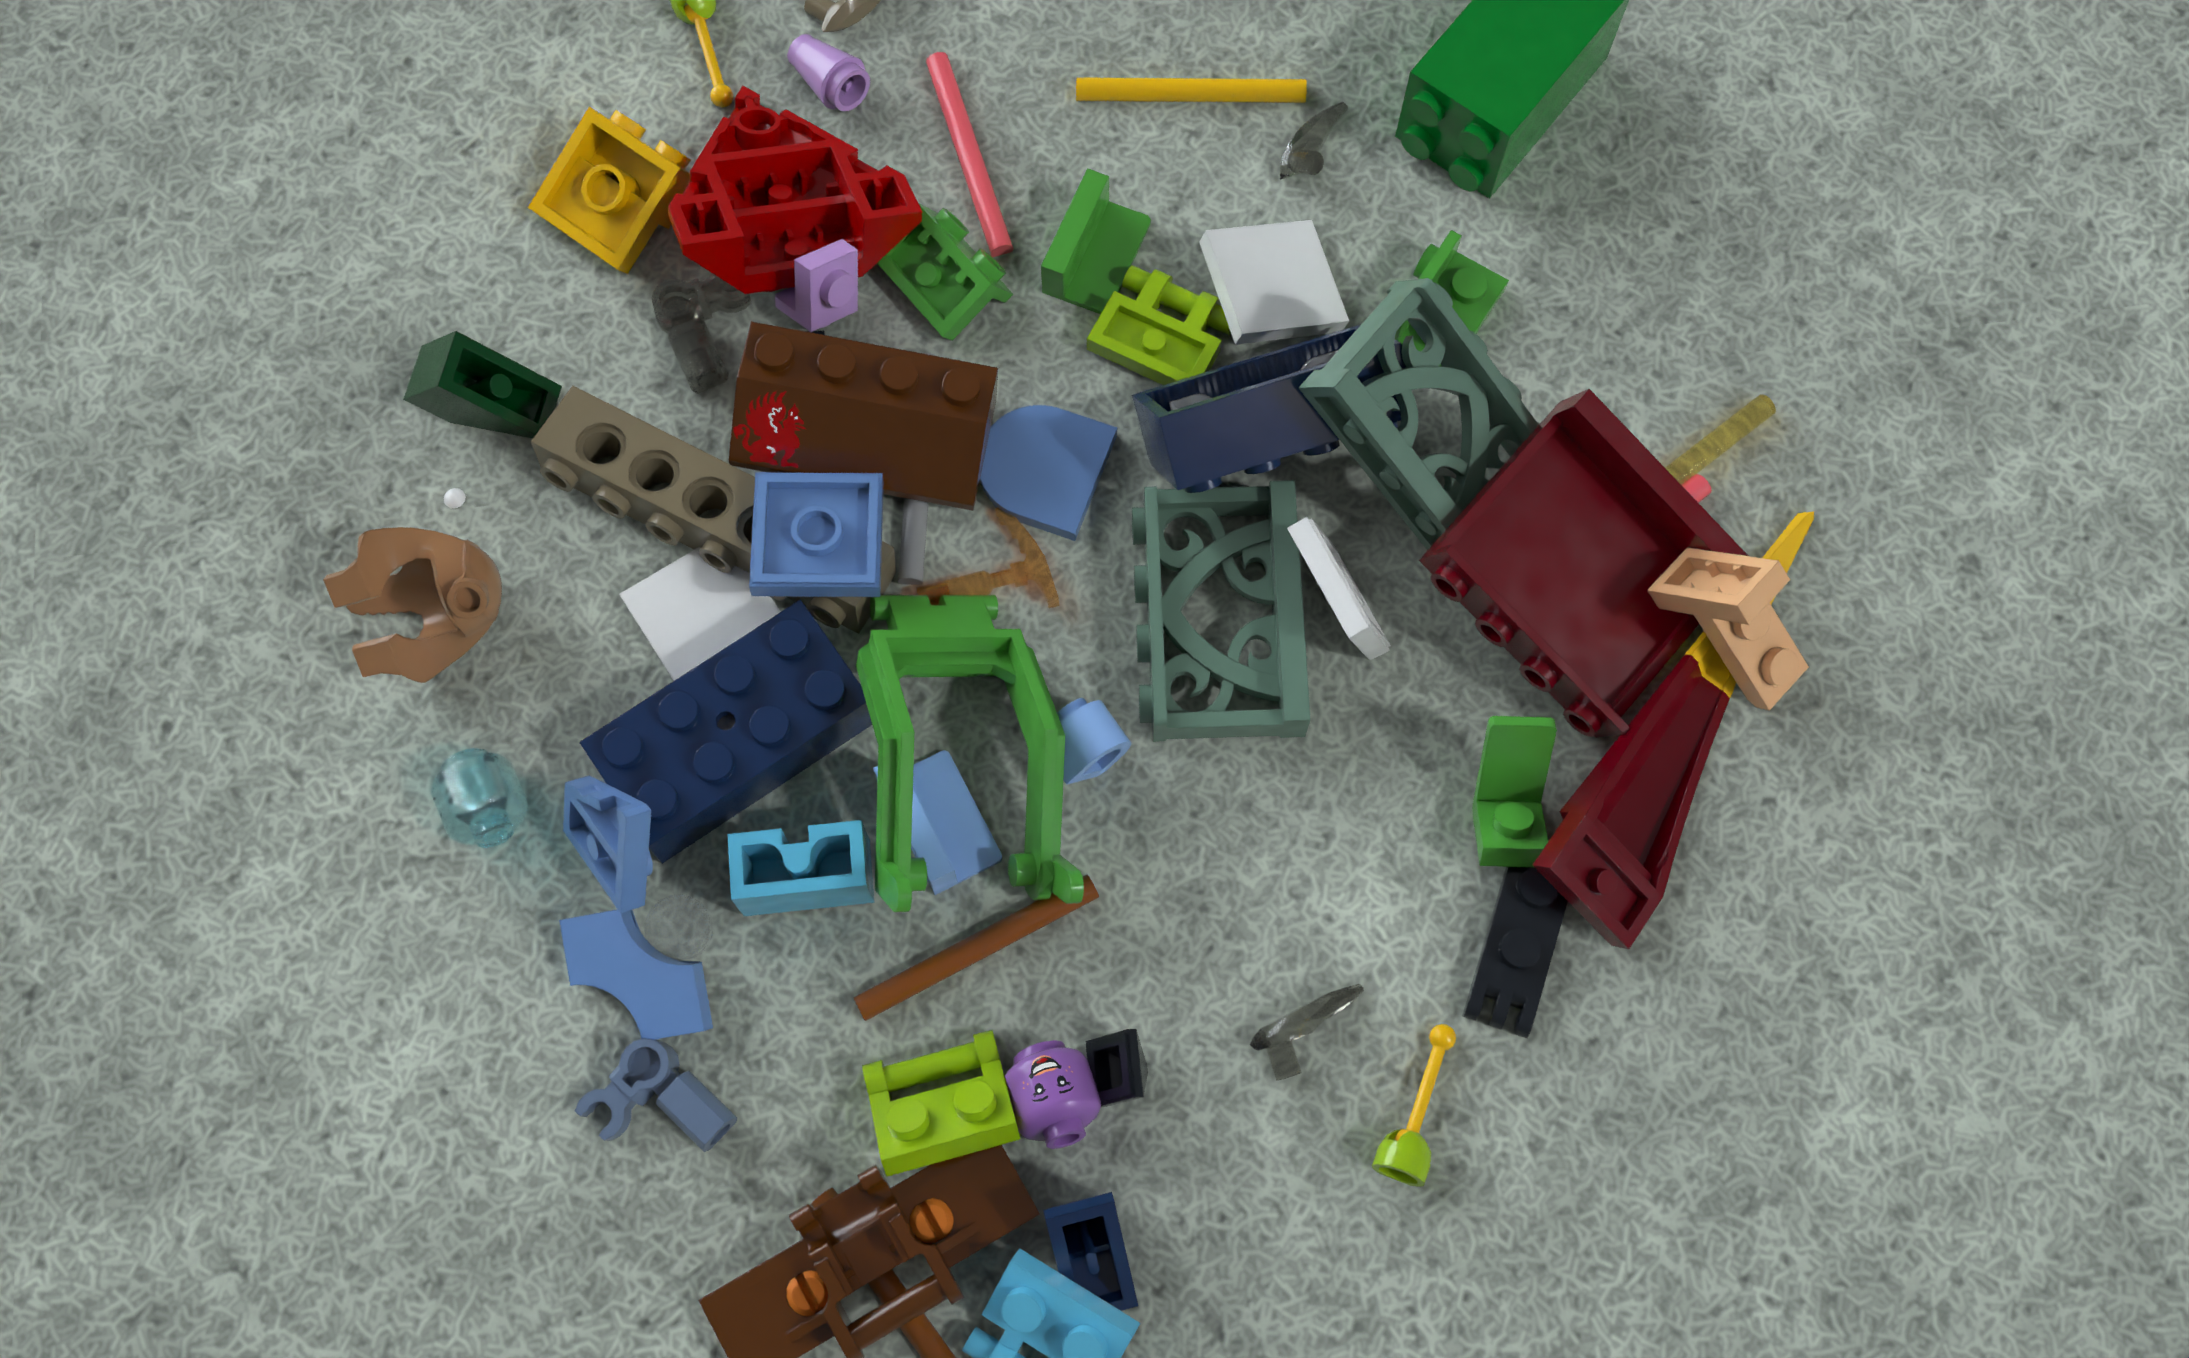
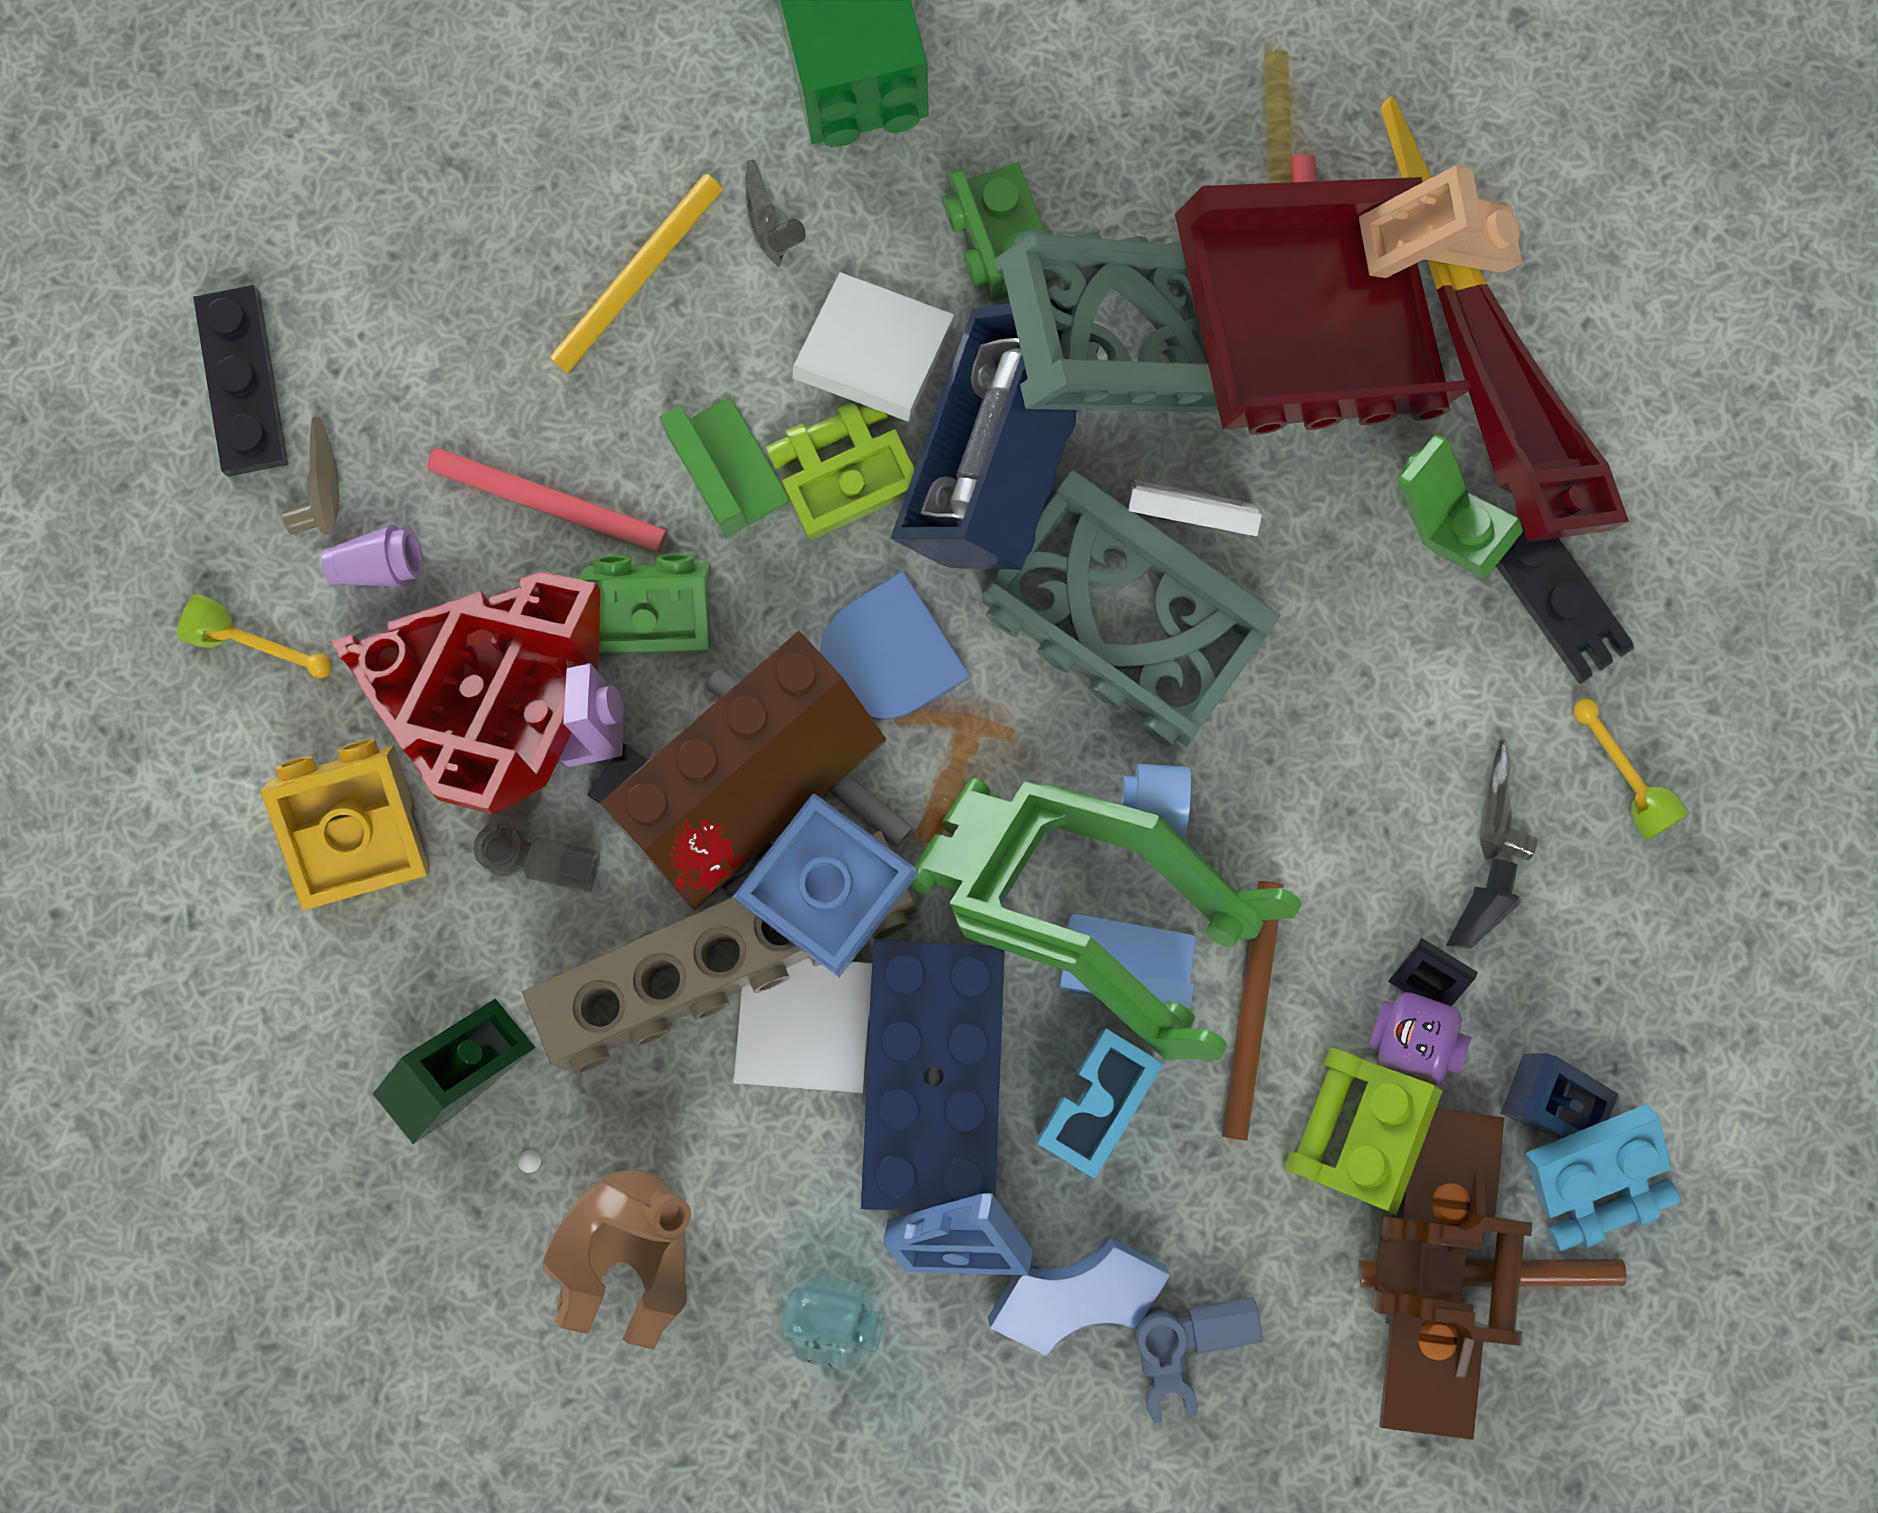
camera: 50 degrees left, 10 degrees up
(1211, 1074) = (1487, 906): none -> black bar

